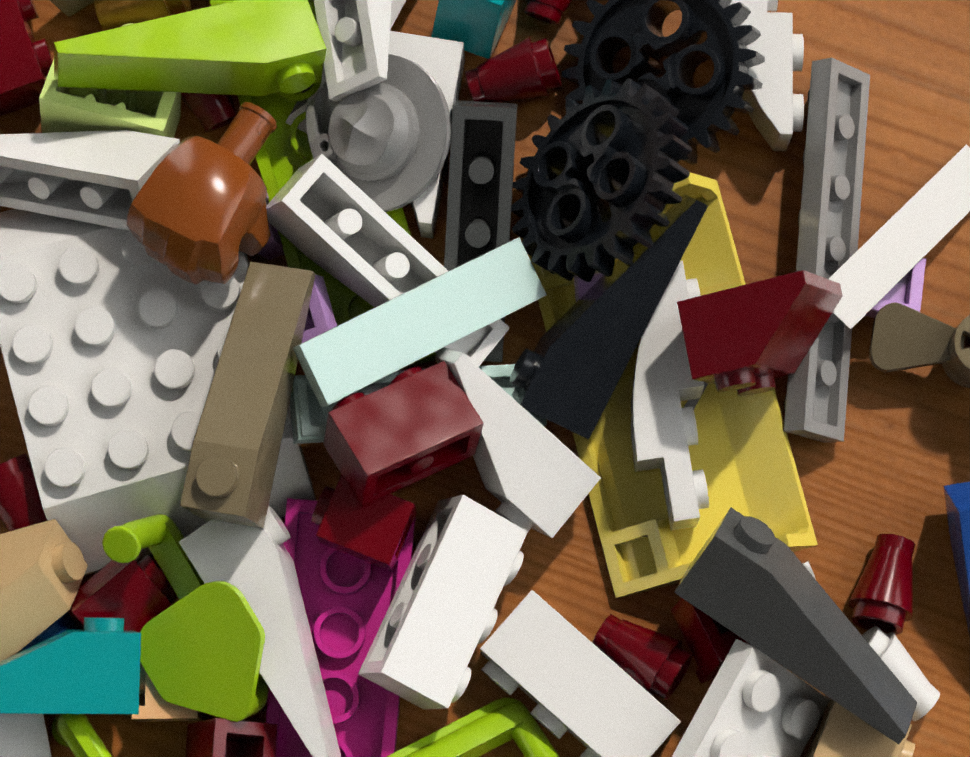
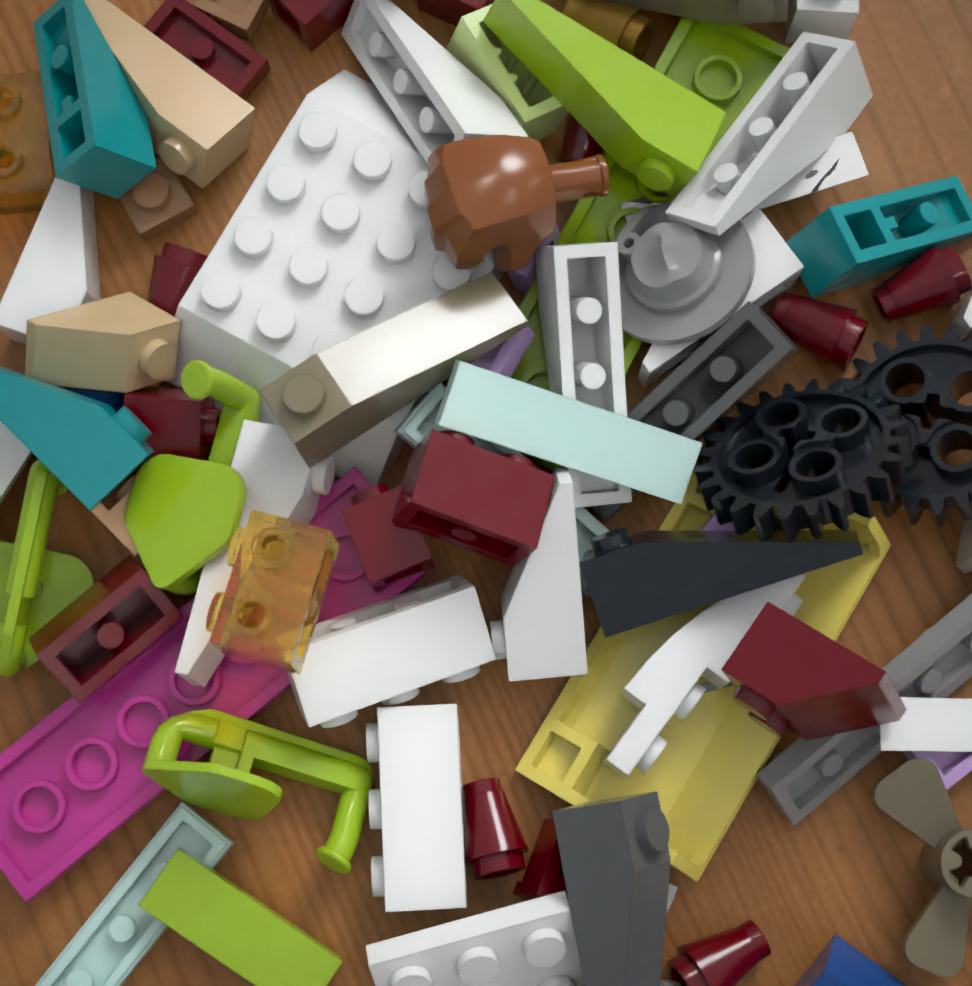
camera: 45 degrees right, 0 degrees up
(332, 636) = (272, 591): none -> clear yellow brick

